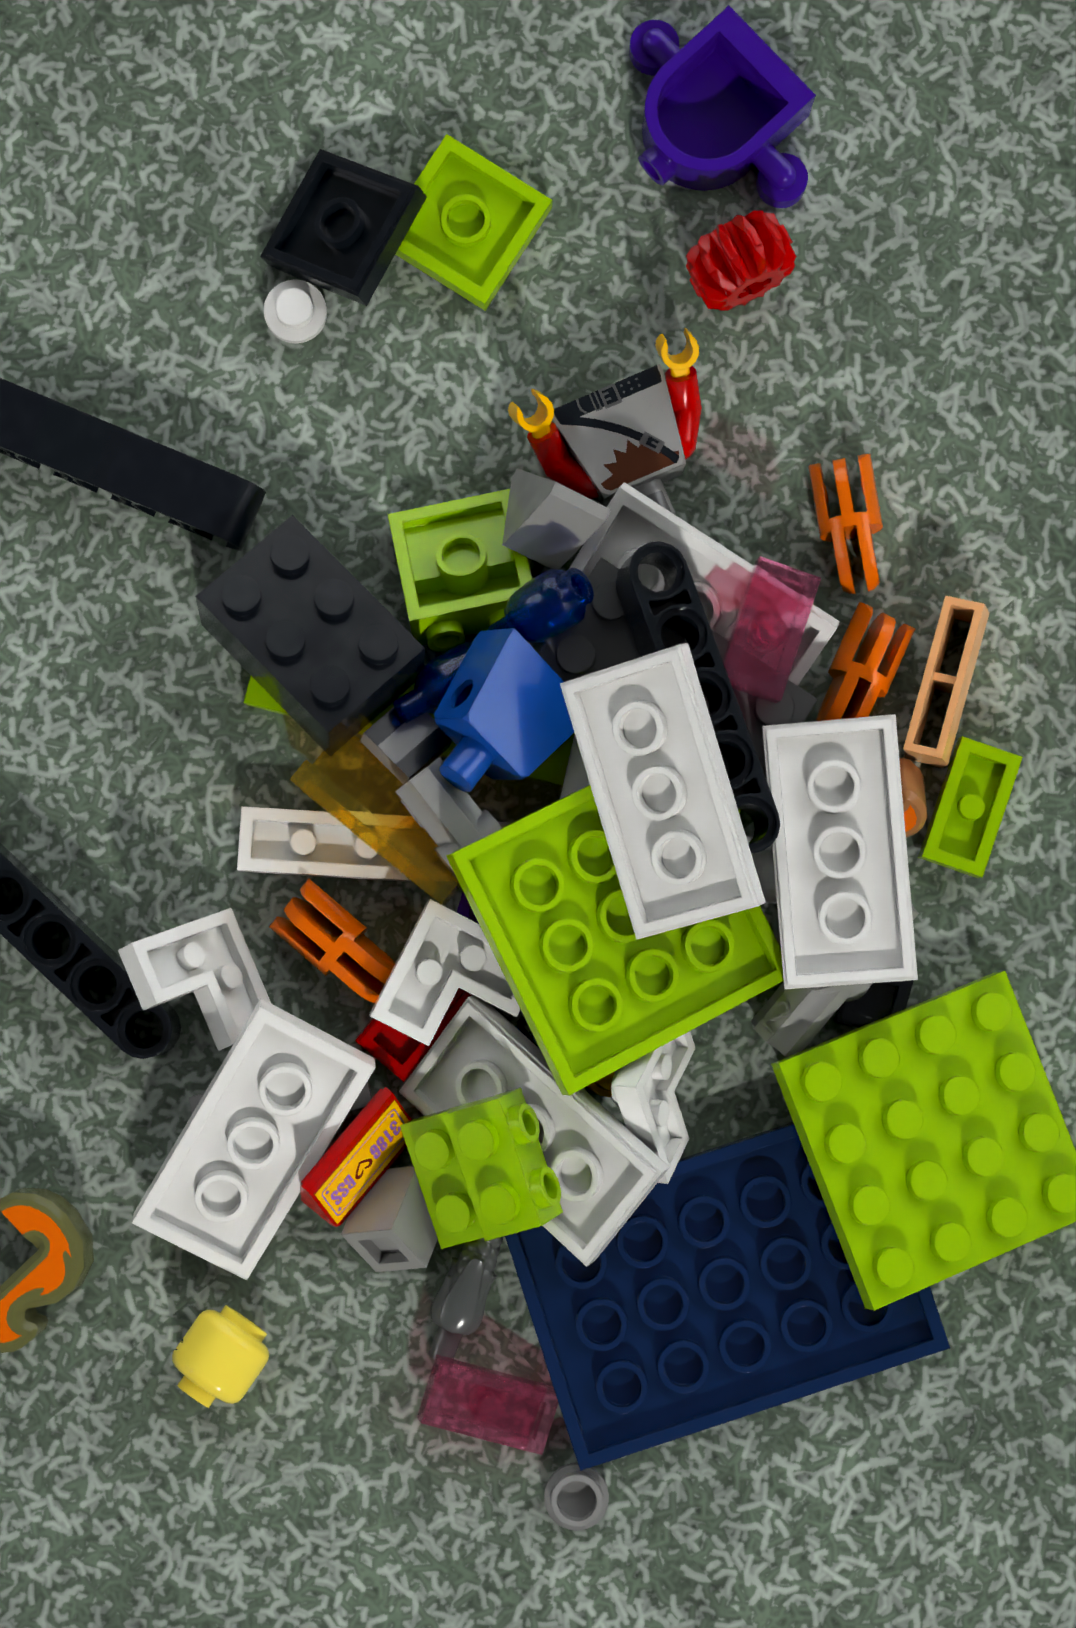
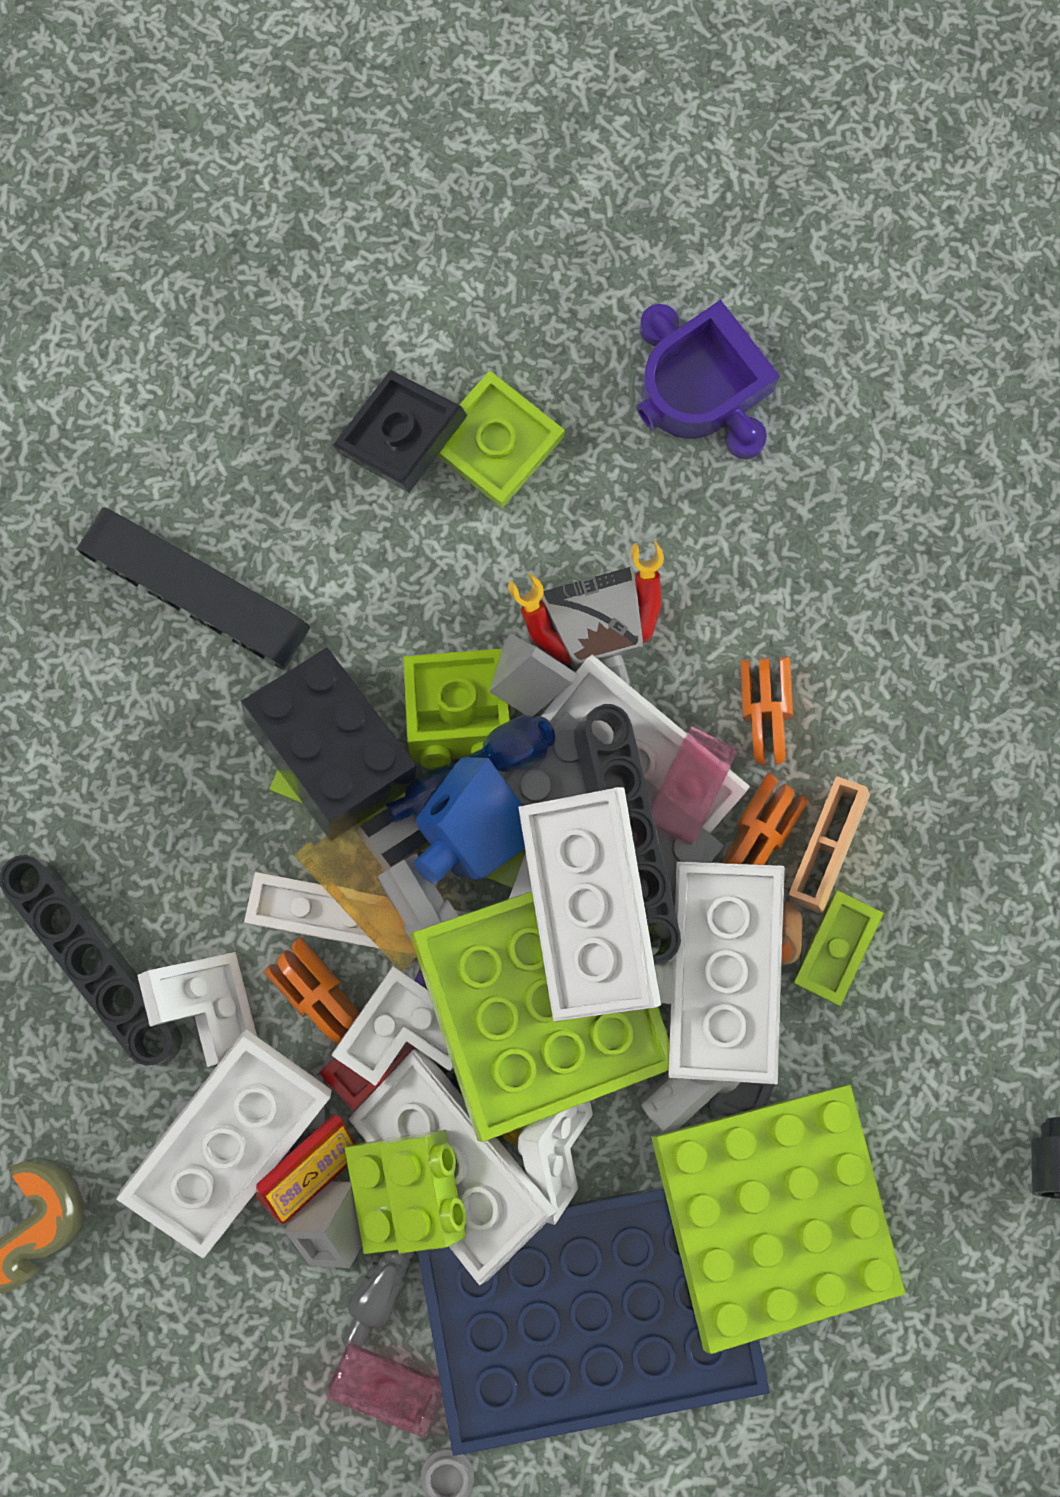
camera: 10 degrees right, 5 degrees down
(220, 1356) = (172, 1319): light yellow head -> none
(295, 311) = (353, 490): white plate -> none
(740, 260) = (705, 494): red gear -> none

